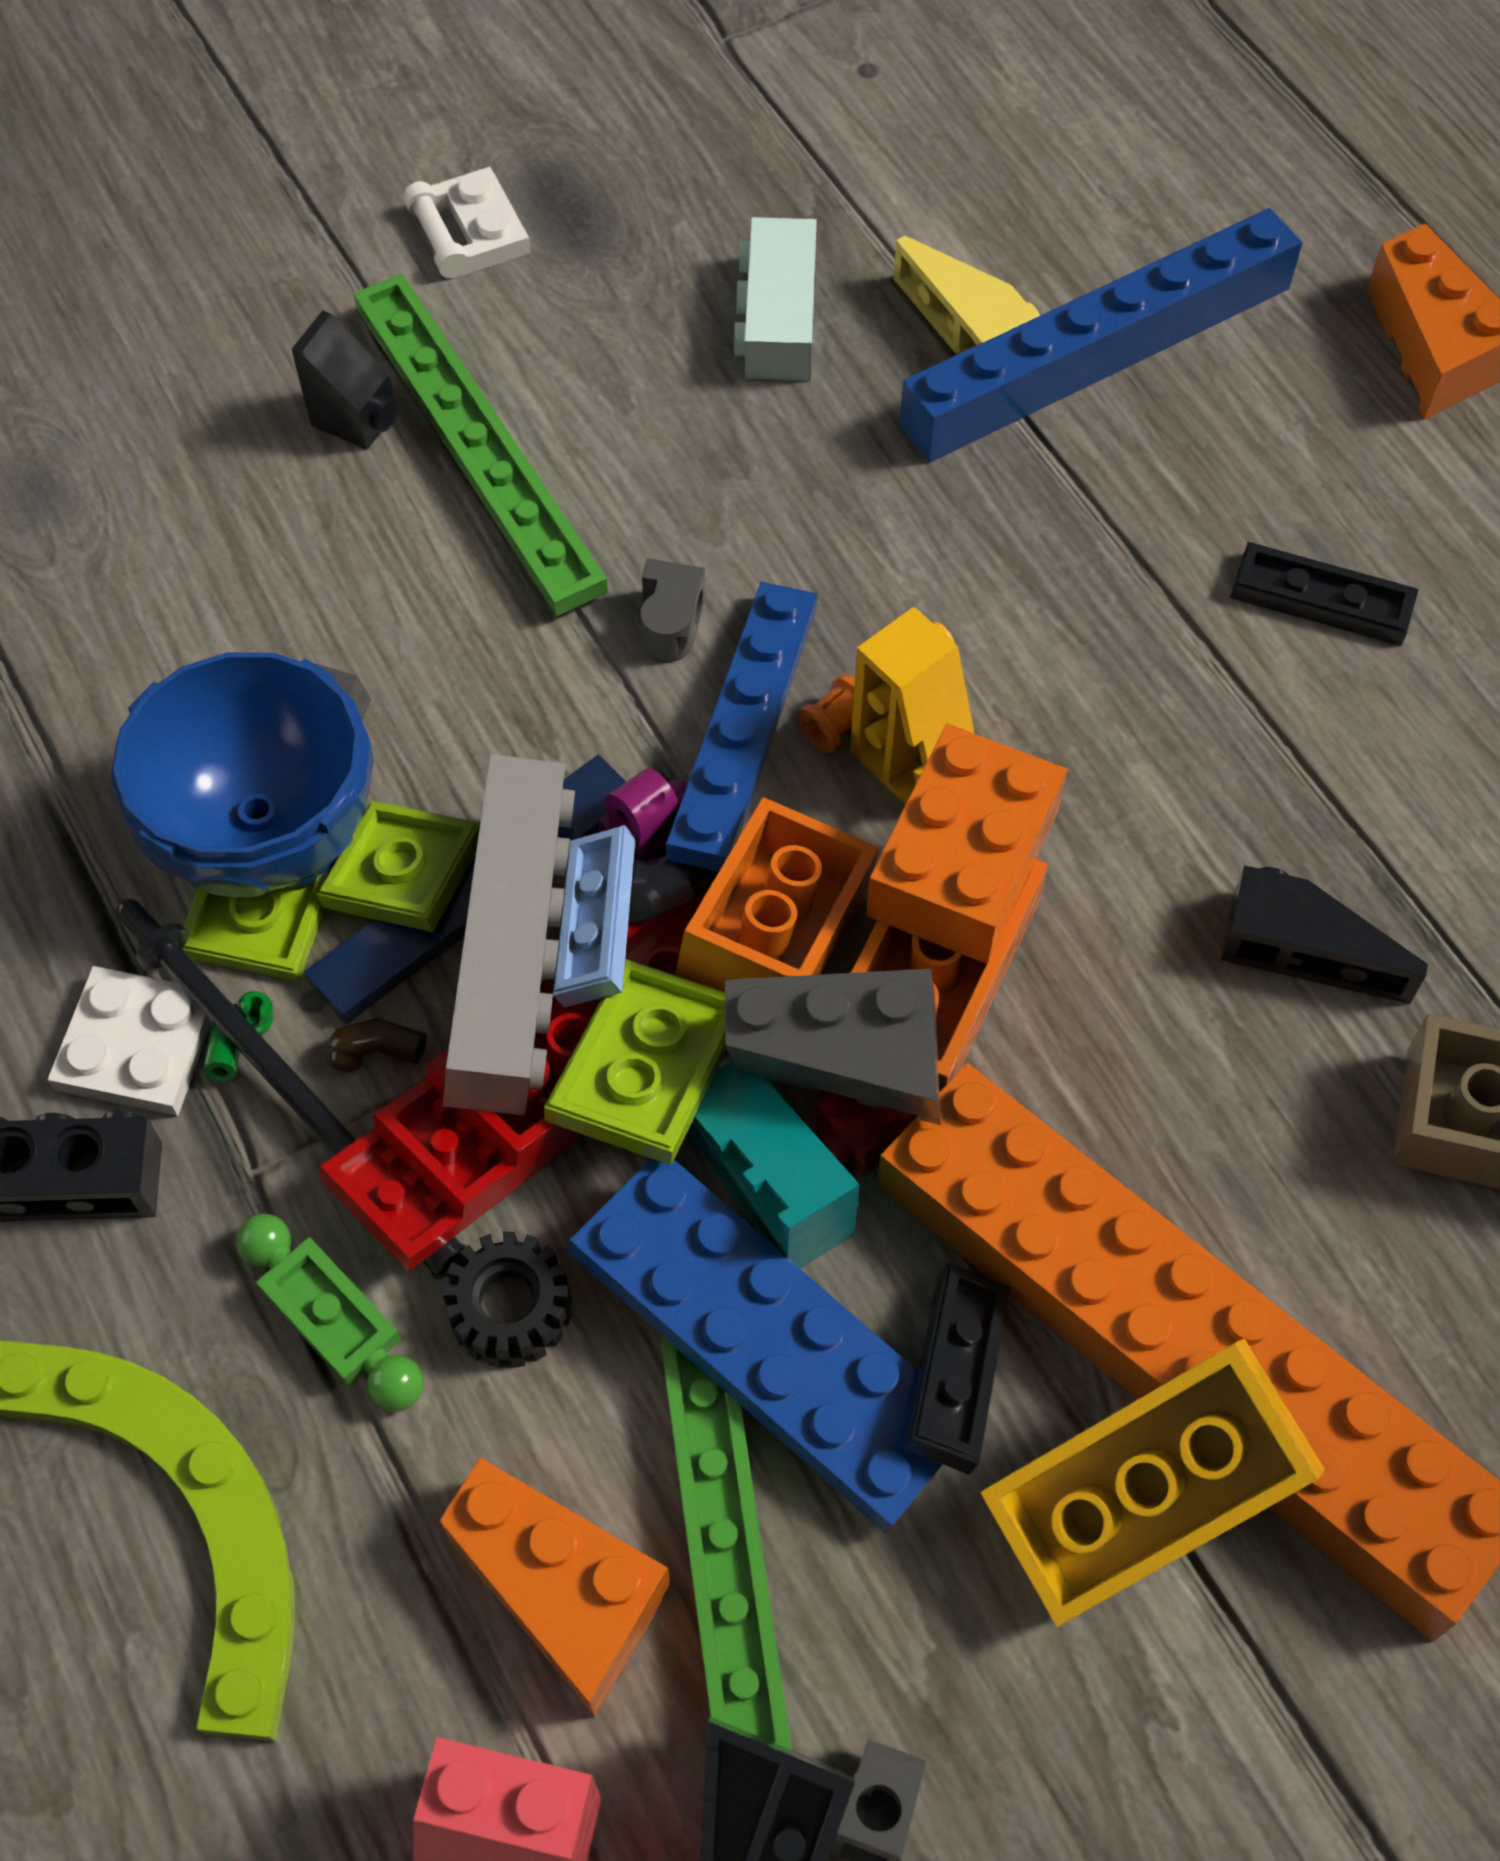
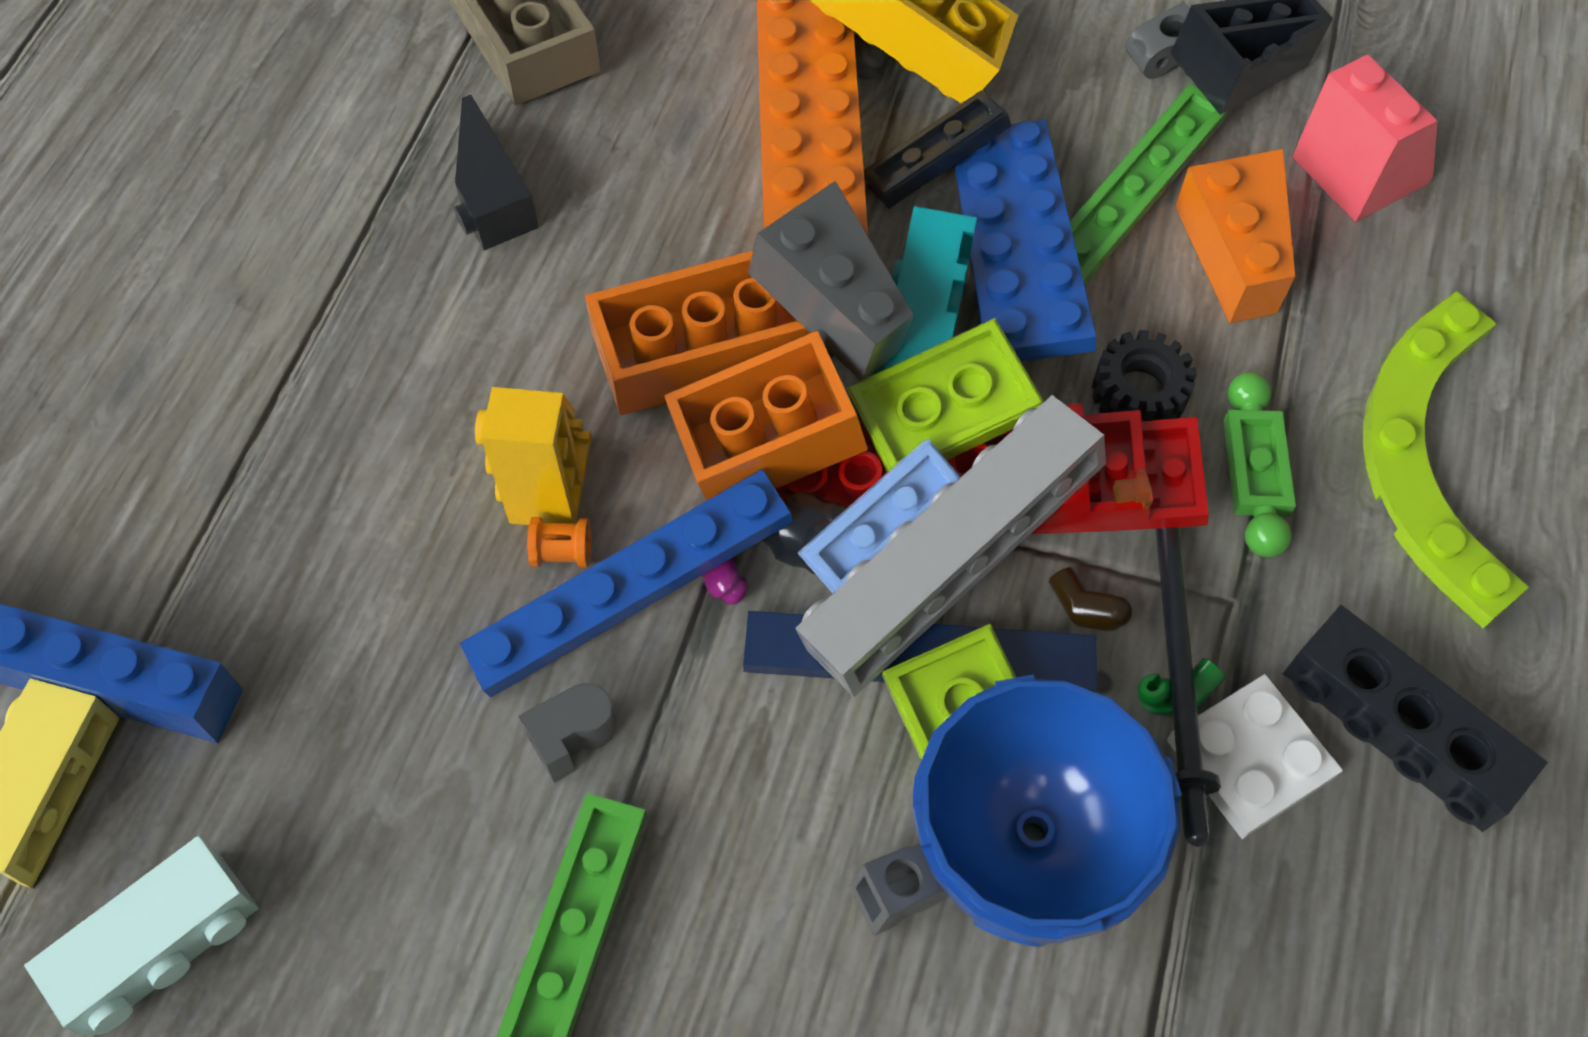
camera: 135 degrees left, 0 degrees up
(397, 1105) = (1134, 489): none -> clear orange piece
(645, 807) = (772, 577): magenta leg -> none
(965, 843) = (627, 317): orange brick -> none
(1324, 593) = (173, 351): black tile -> none

